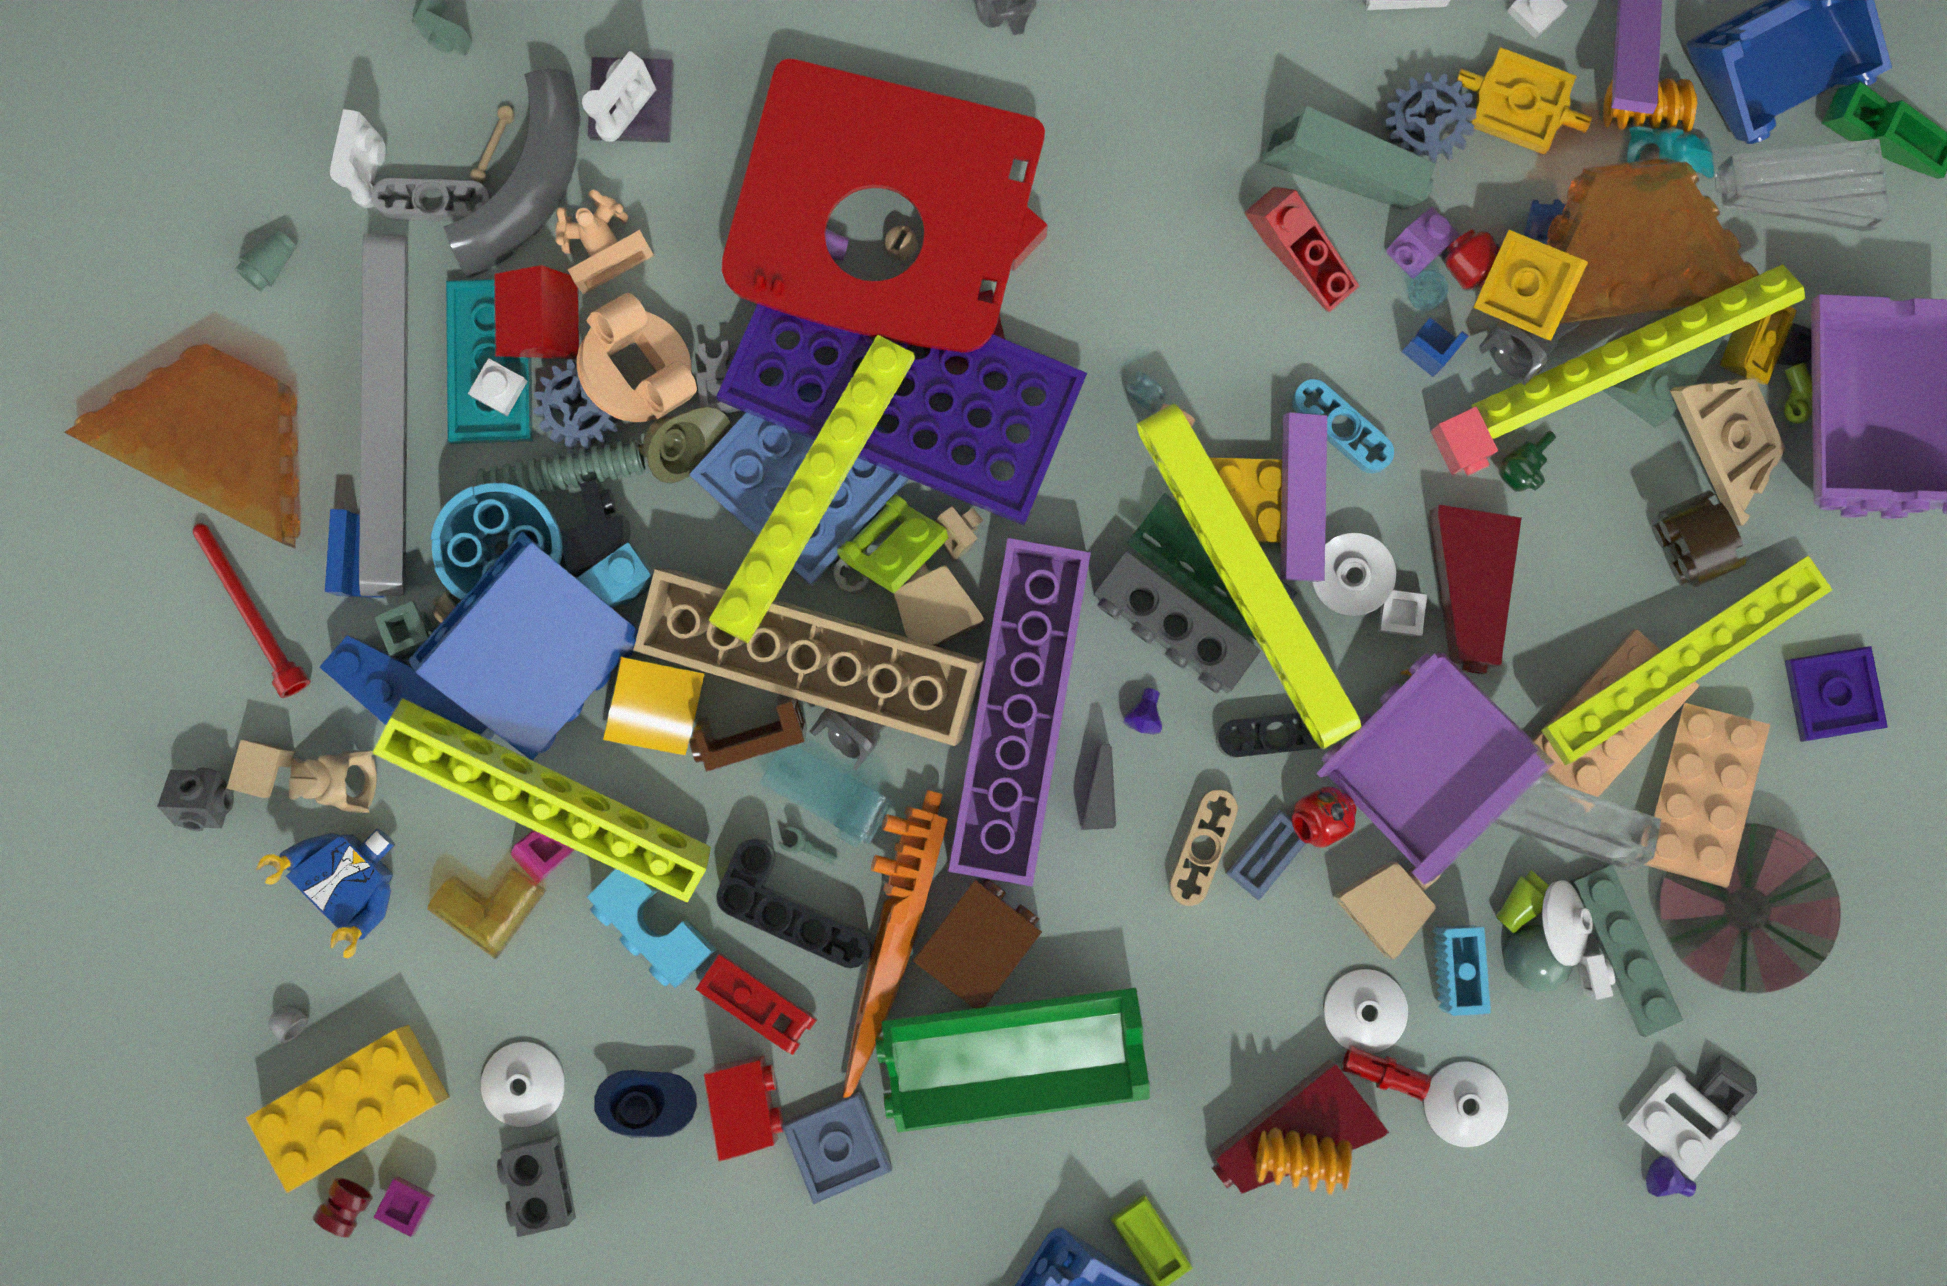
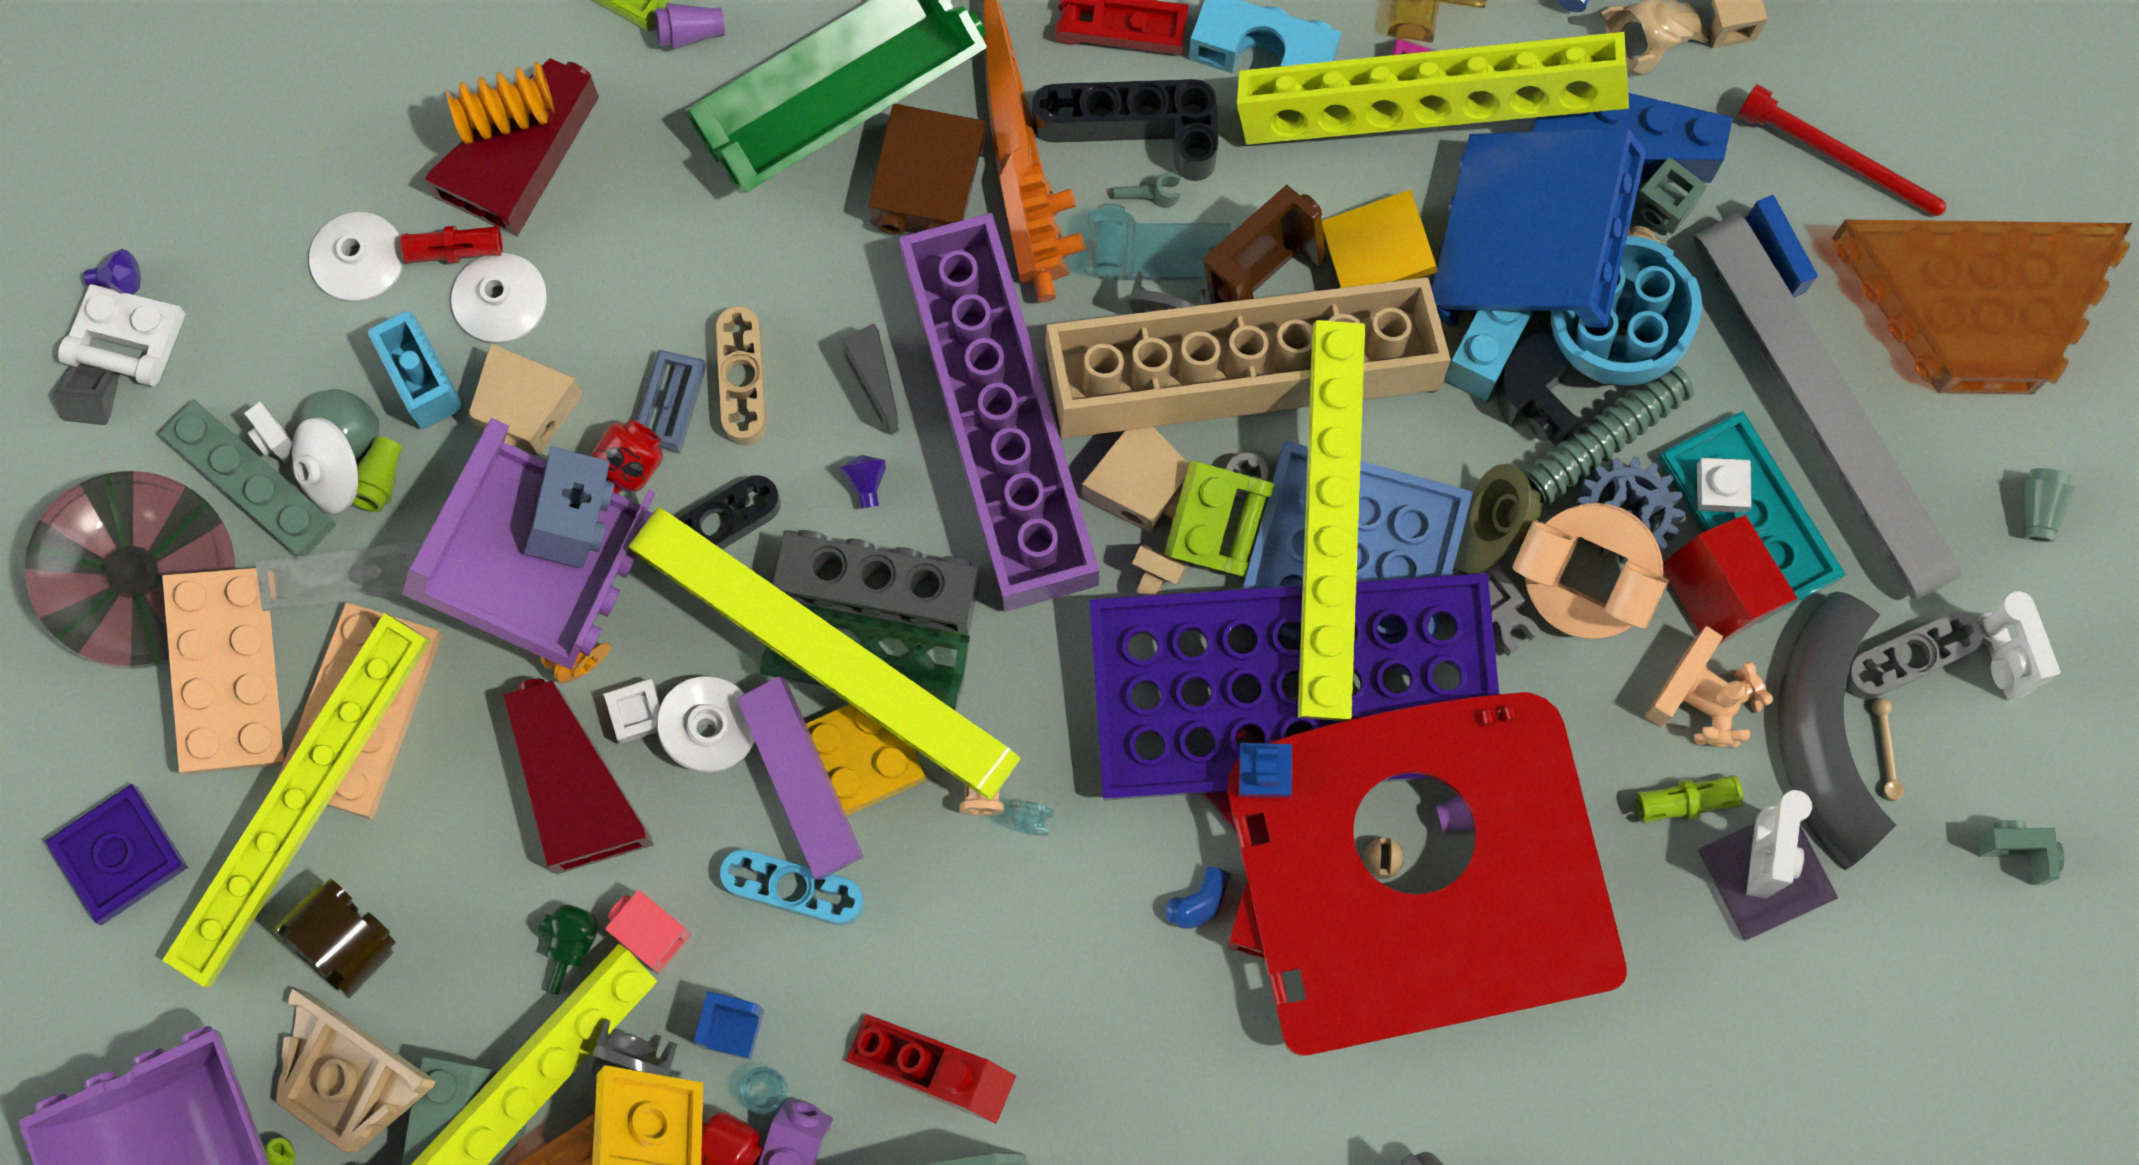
camera: 150 degrees right, 10 degrees down
(657, 176) = (1689, 799): none -> lime pin
(961, 325) = (1265, 770): none -> blue tile
(1050, 269) = (1200, 906): none -> blue arm
(1112, 1177) = (686, 24): none -> medium lavender cone
(1413, 772) = (568, 508): none -> sand blue brick

